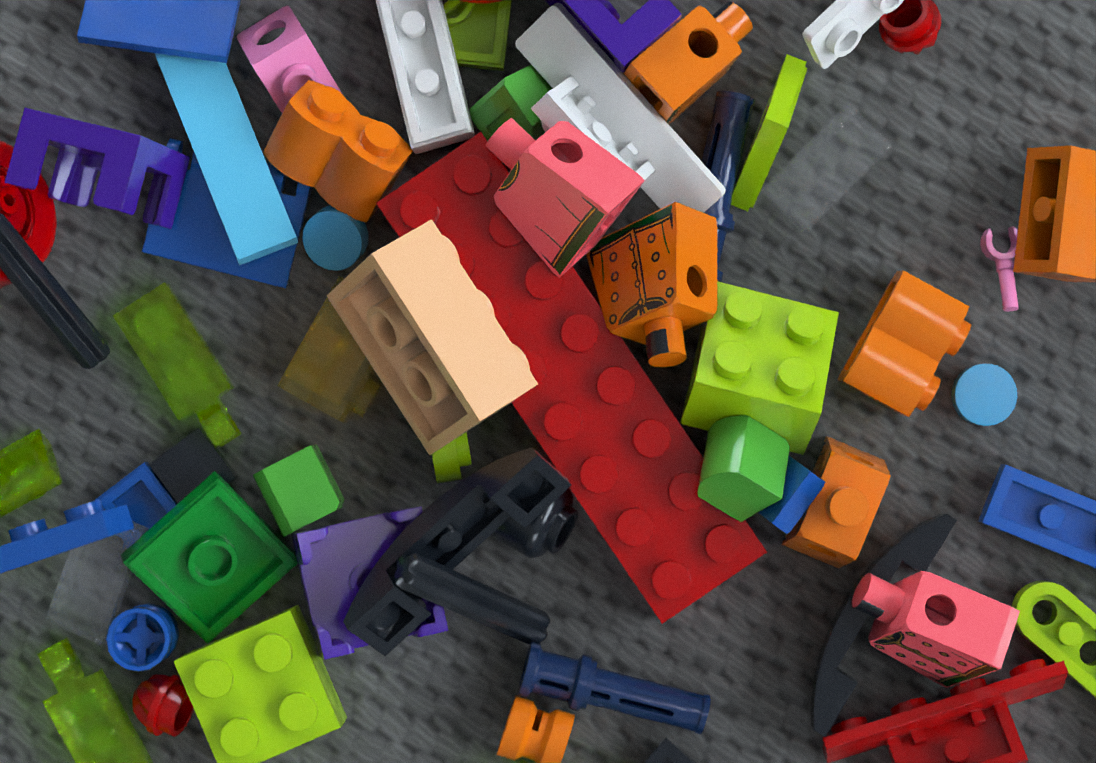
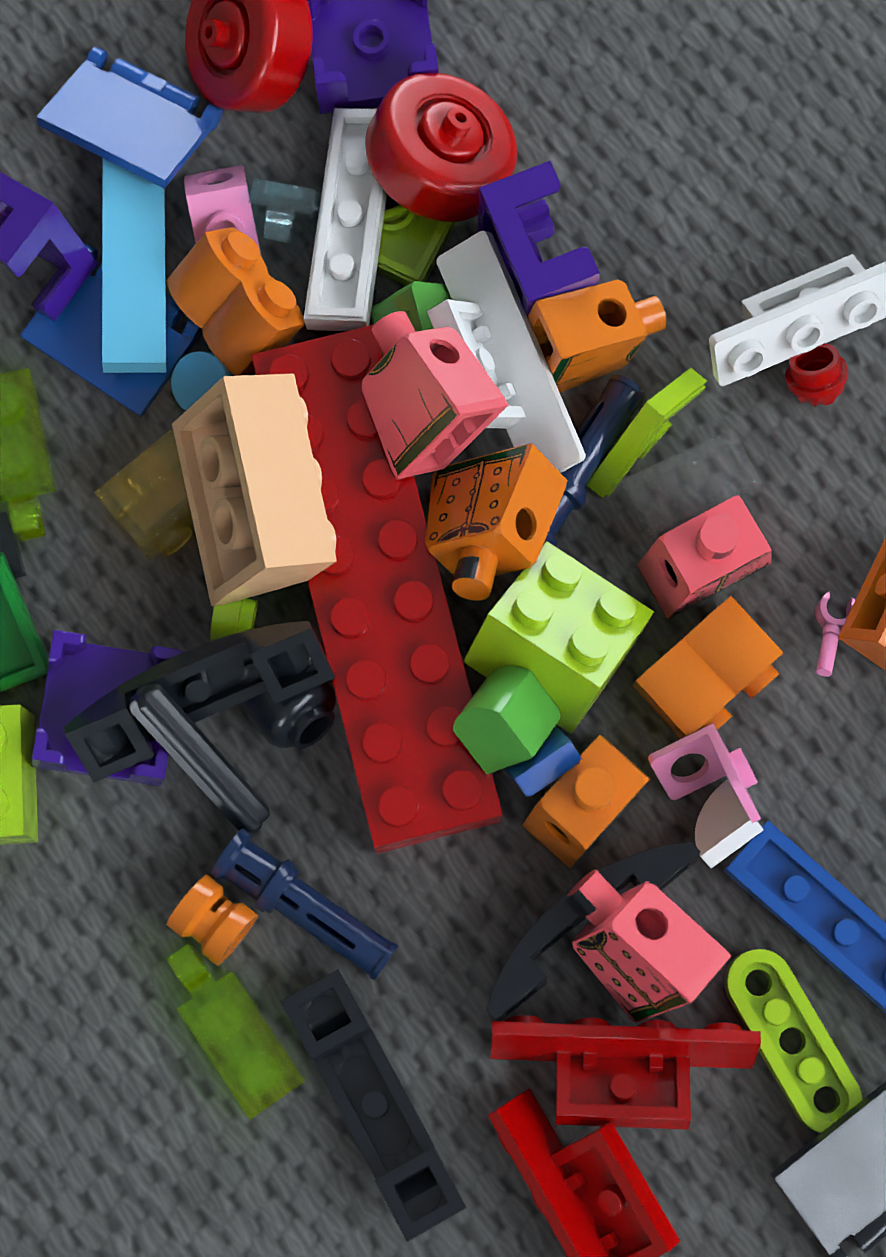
camera: 15 degrees right, 10 degrees down
(299, 489) = (78, 599): bright green piece -> none
(345, 34) = (283, 207): none -> clear light blue tile
(866, 241) = (705, 555): none -> coral torso
(940, 426) = (717, 765): none -> bright pink bracket
(966, 481) = (723, 825): none -> white tile
(984, 394) = (772, 748): dark azure tile -> none

